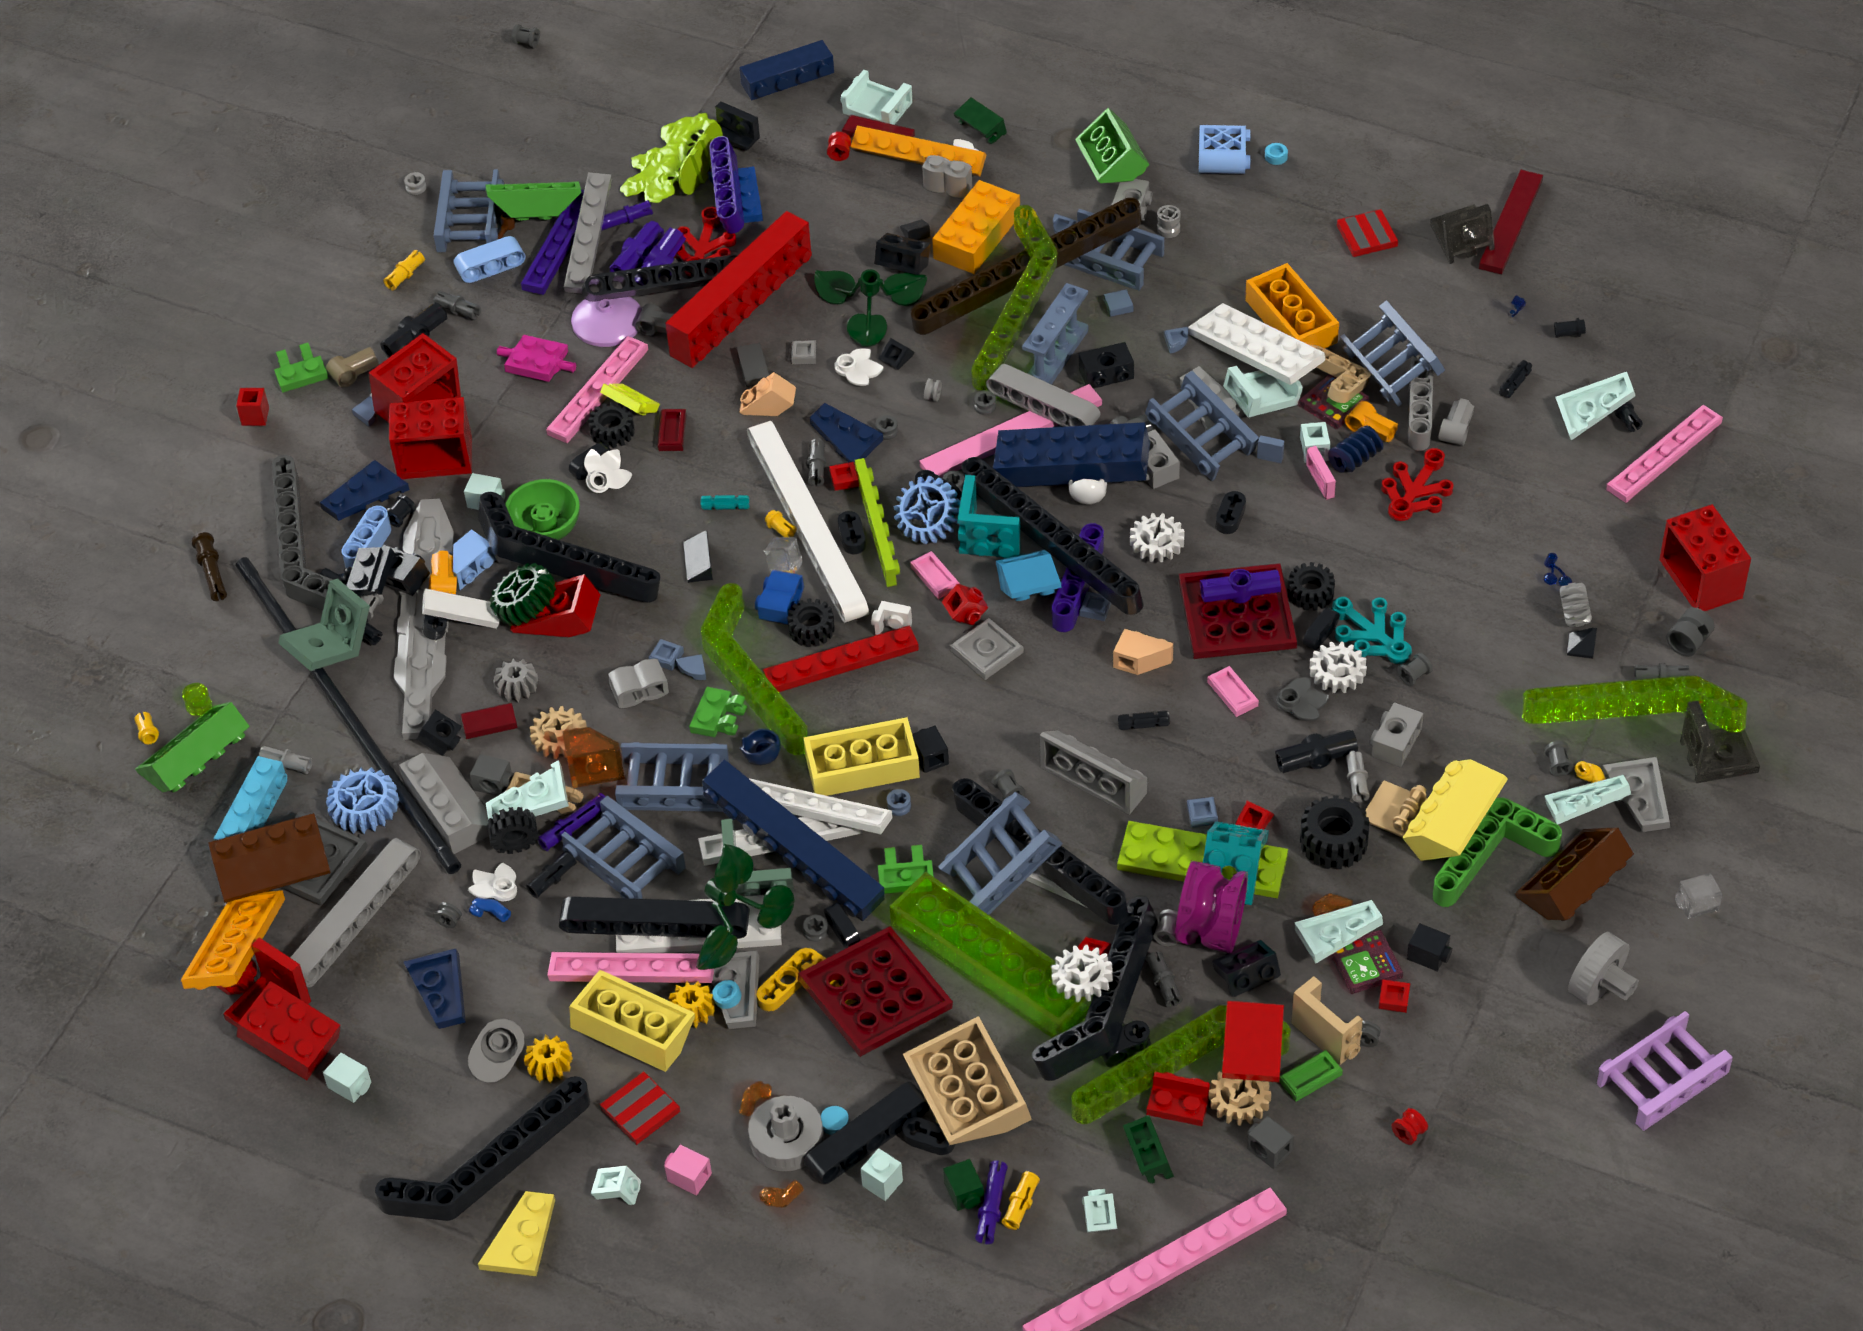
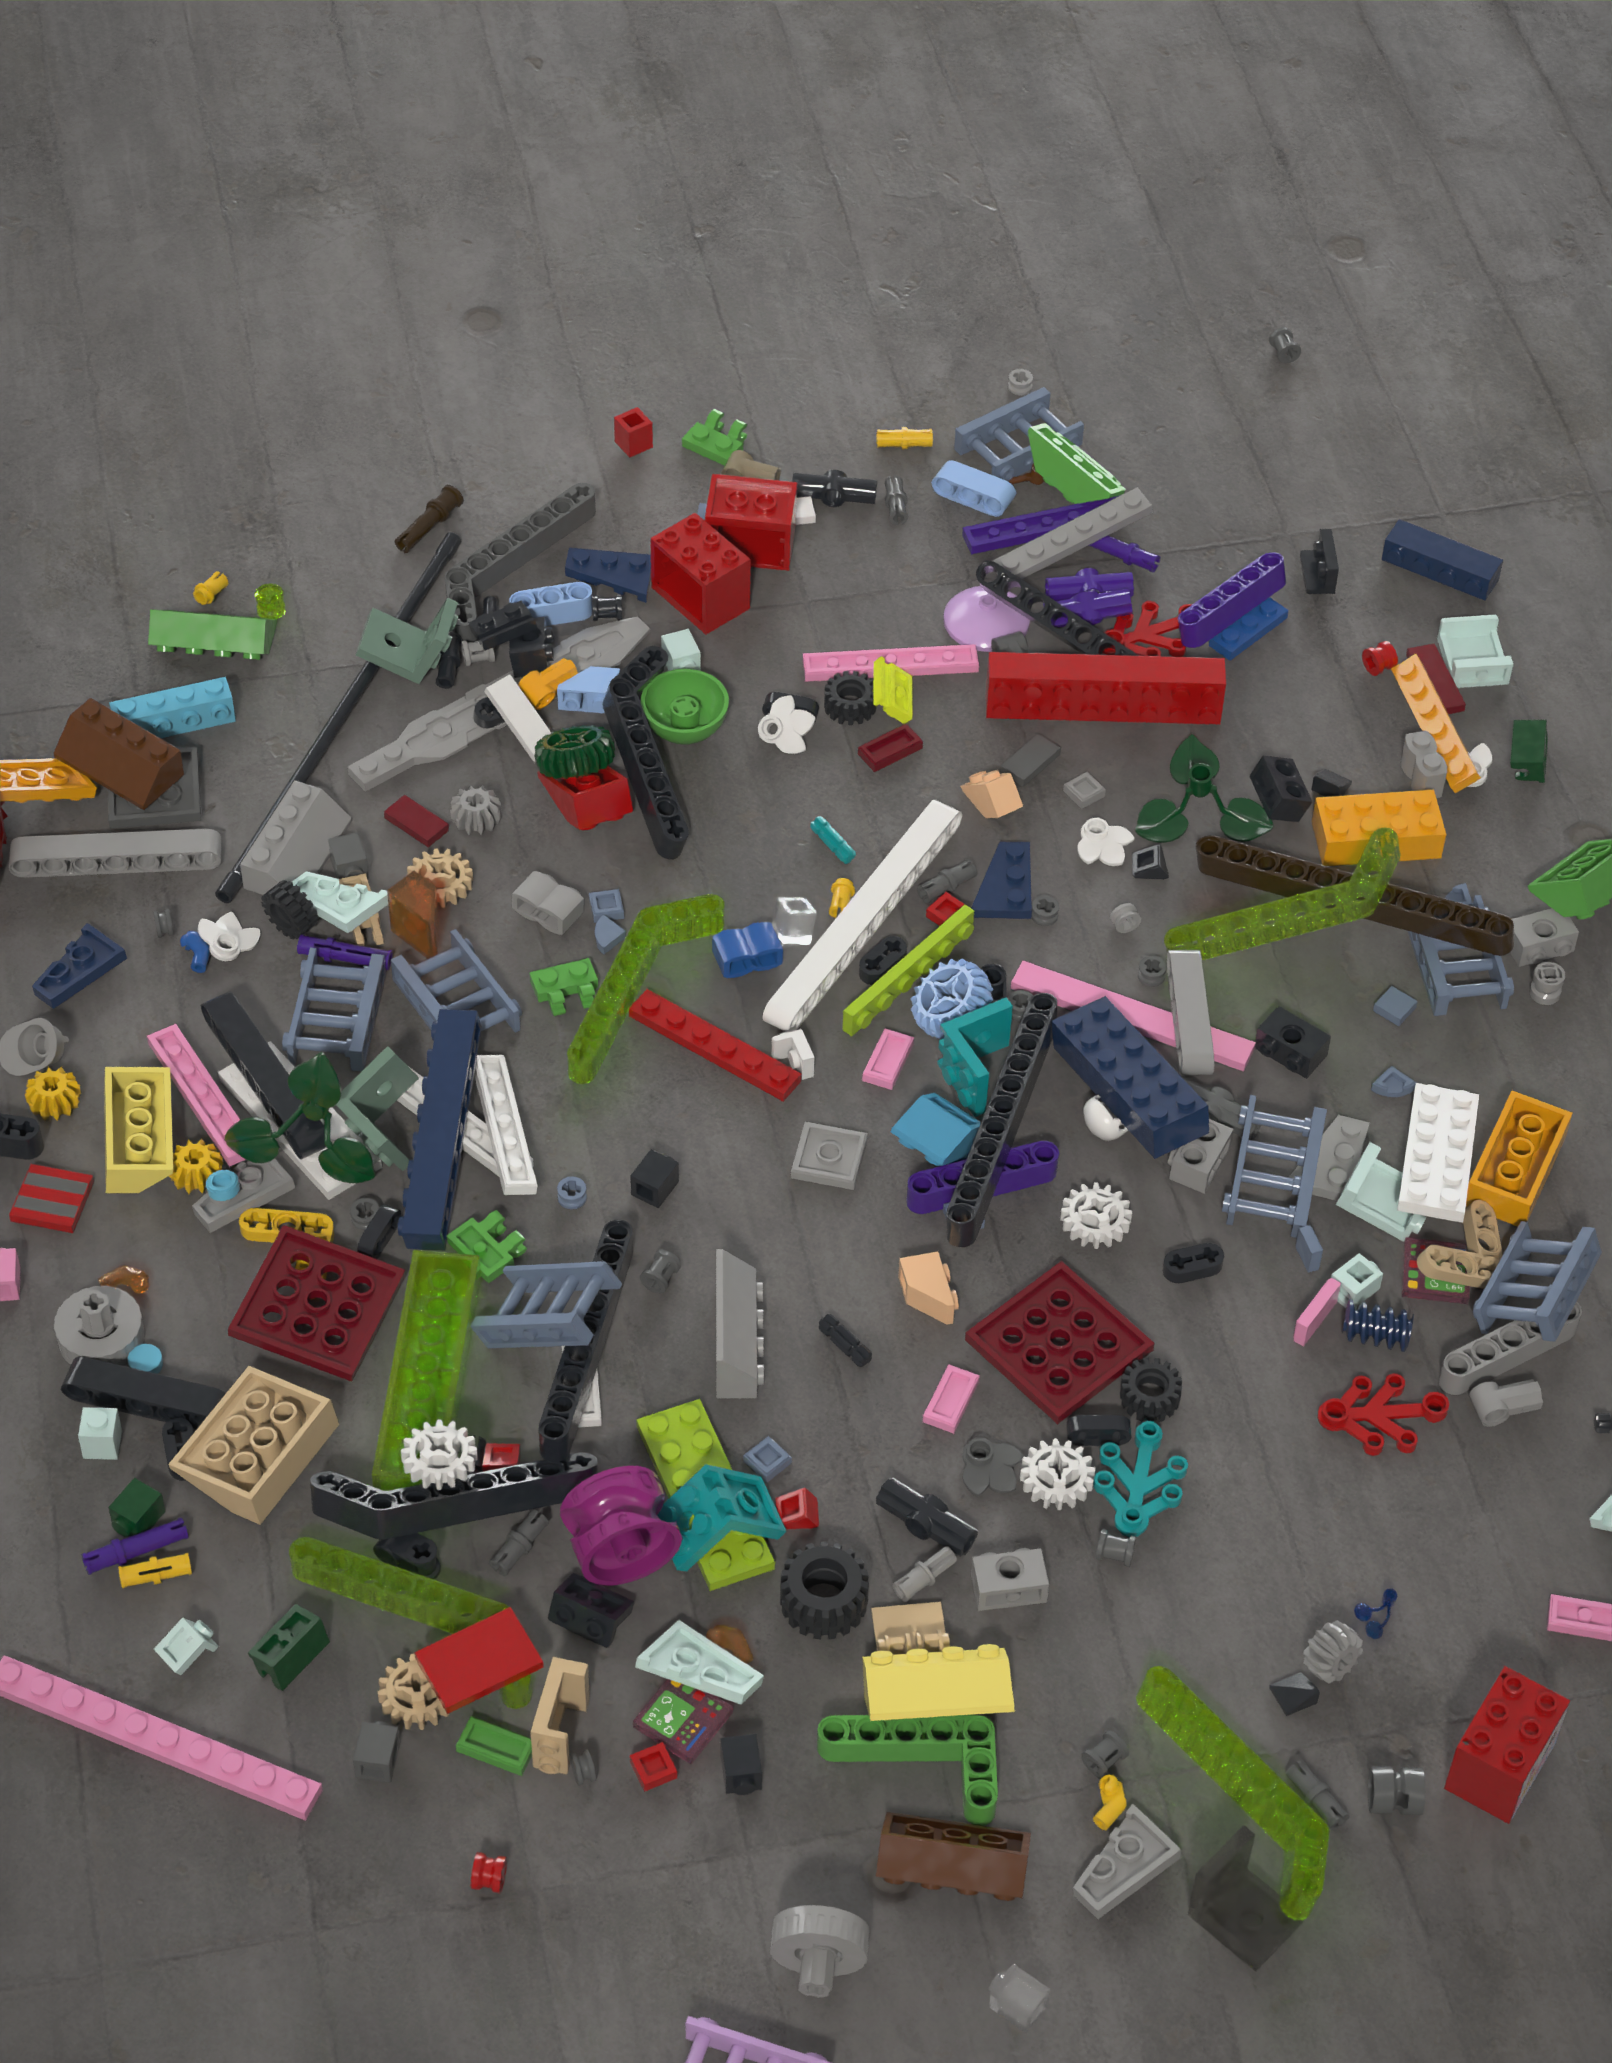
camera: 50 degrees right, 0 degrees up
(289, 759) = (251, 703): light grey axle -> none
(359, 794) = (245, 783): light blue gear -> none
(440, 723) = (361, 779): black brick -> none
(536, 358) = (885, 595): dark pink plate -> none
(563, 864) = (250, 969): black pin -> none
(665, 161) = (1233, 547): lime plant -> none
(698, 558) = (746, 861): slope -> none
(761, 747) = (546, 1041): dark blue hair -> none
(780, 1197) = (23, 1368): clear orange arm -> none
(809, 611) = (737, 1006): black tyre -> none
(861, 757) = (591, 1126): light yellow brick -> none
(965, 604) = (860, 1101): red brick -> none
(1057, 334) = (1285, 991): sand blue fence -> none
(1178, 1098) = (375, 1639): red bracket -> none
(1240, 586) = (1069, 1310): dark purple piece -> none
(1366, 414) = (1433, 1314): light orange piece -> none
(1585, 798) = (1060, 1806): light aqua wing -> none

